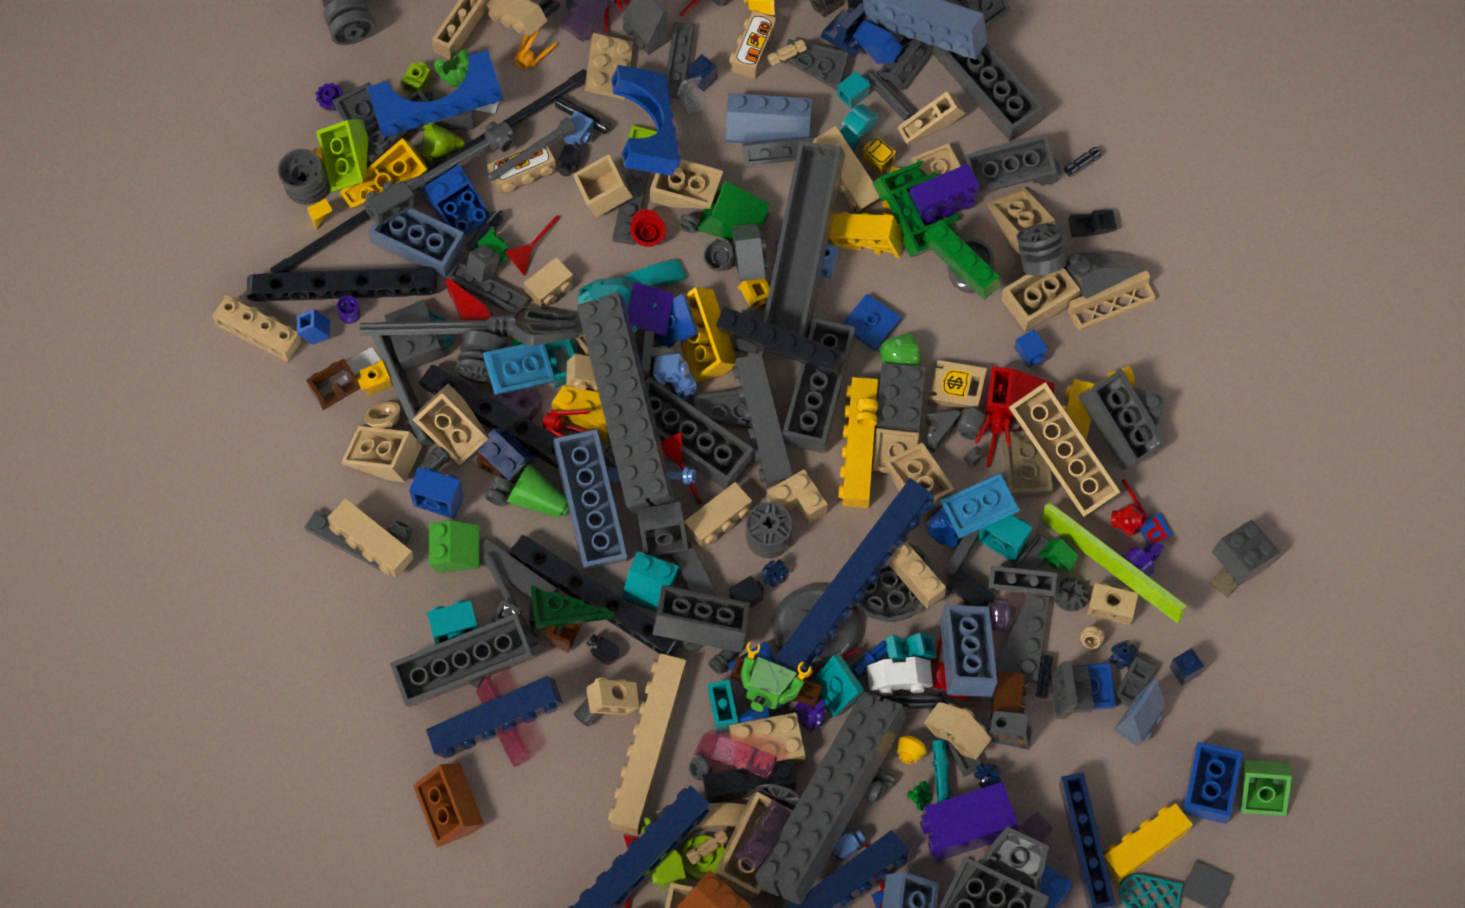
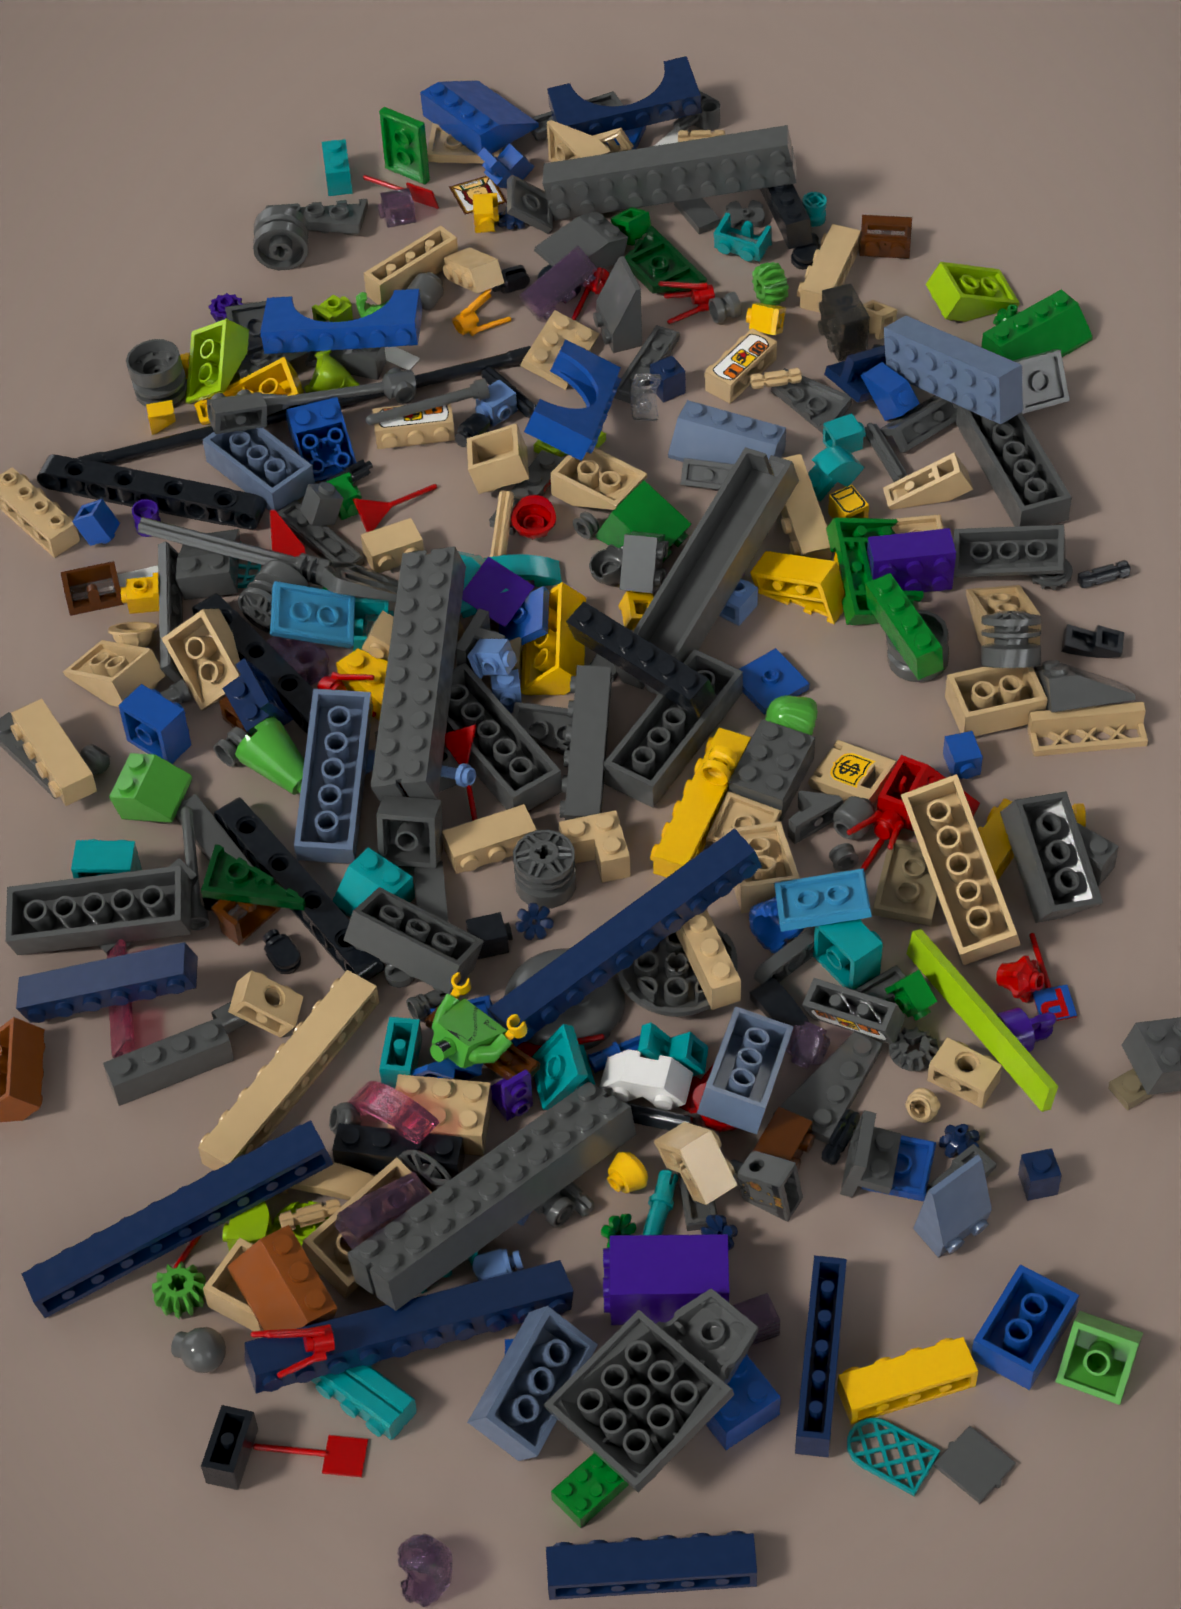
camera: 20 degrees right, 15 degrees down
(481, 37) = (430, 289): none -> dark grey head
(559, 760) = (168, 1061): none -> dark grey brick
(626, 243) = (502, 523): none -> tan axle

